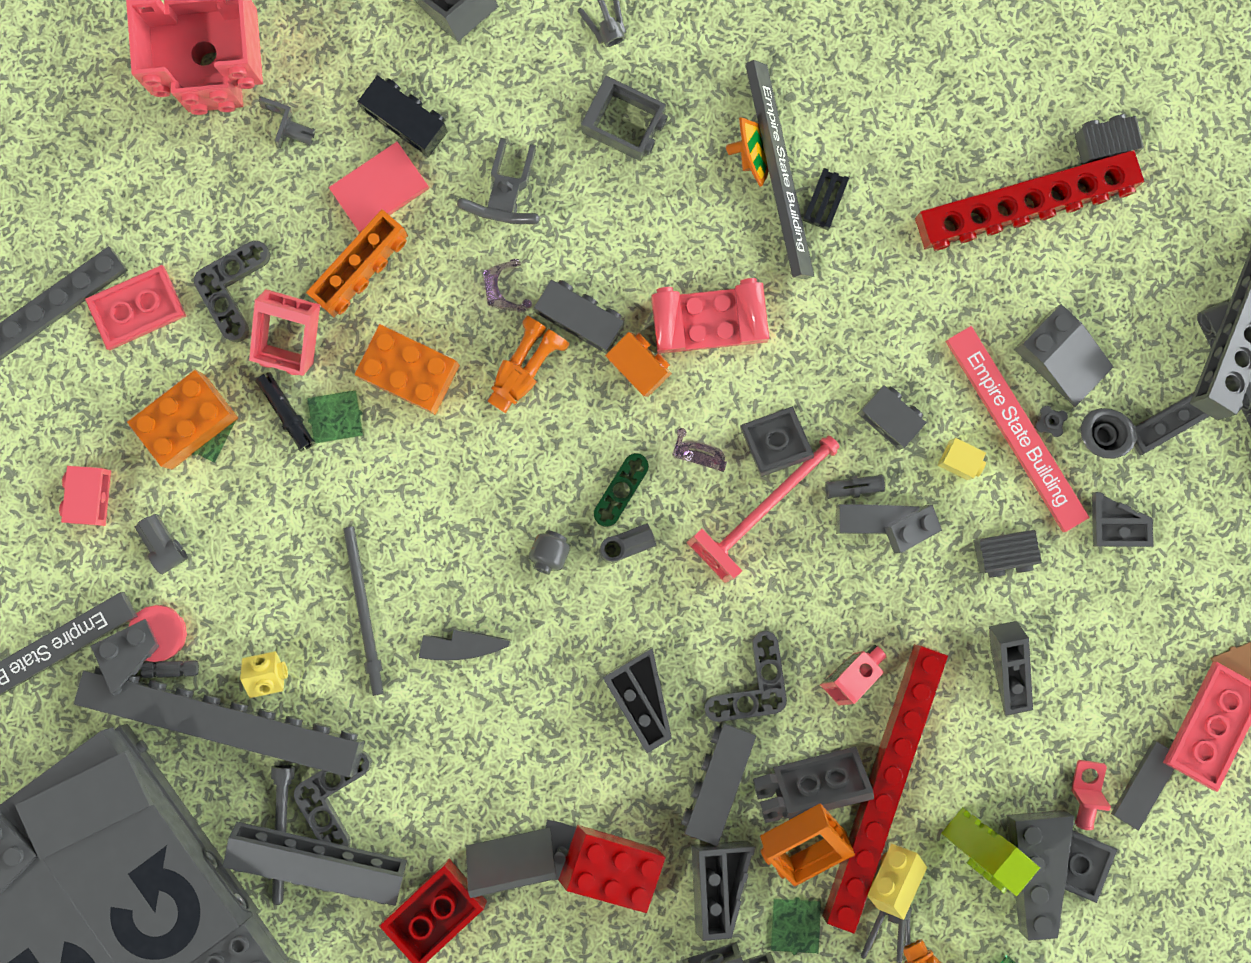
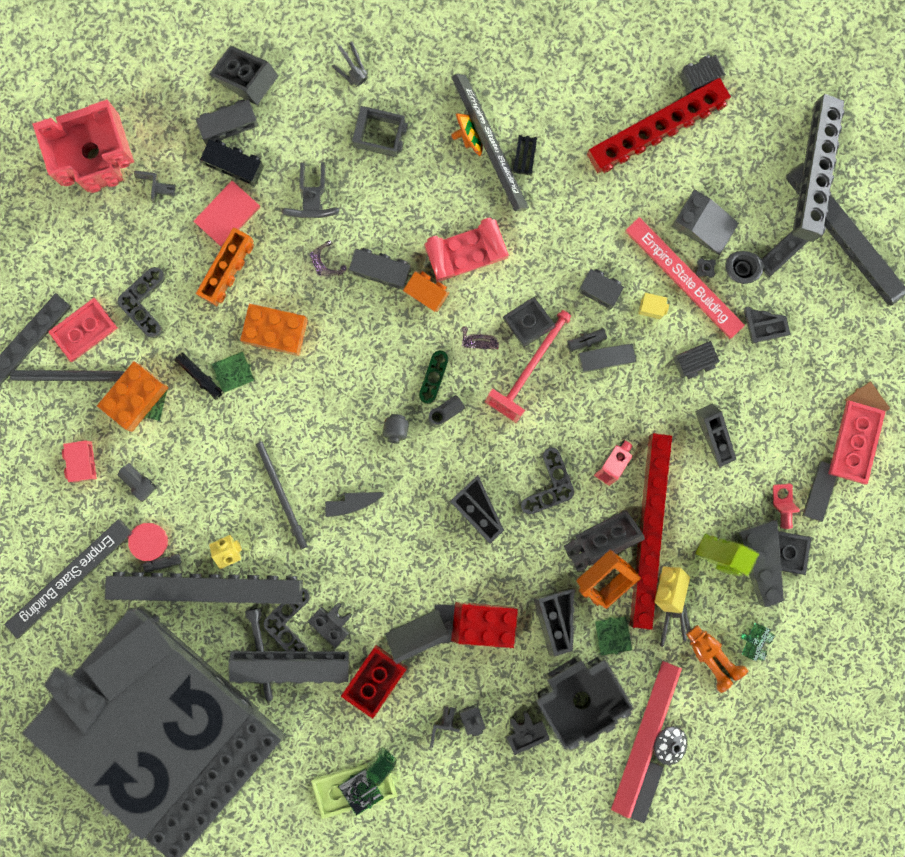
camera: 15 degrees left, 0 degrees up
(95, 367) = (64, 375): none -> dark grey axle
(124, 653) = (130, 558): dark grey wing -> none
(291, 309) = (186, 306): coral window -> none
(390, 814) = (330, 624): none -> dark grey plate
(409, 55) = (227, 121): none -> dark grey brick
(513, 380) = (347, 321): orange piece -> none
(719, 783) = (542, 553): dark grey brick -> none
(913, 528) = (631, 358): dark grey plate -> none

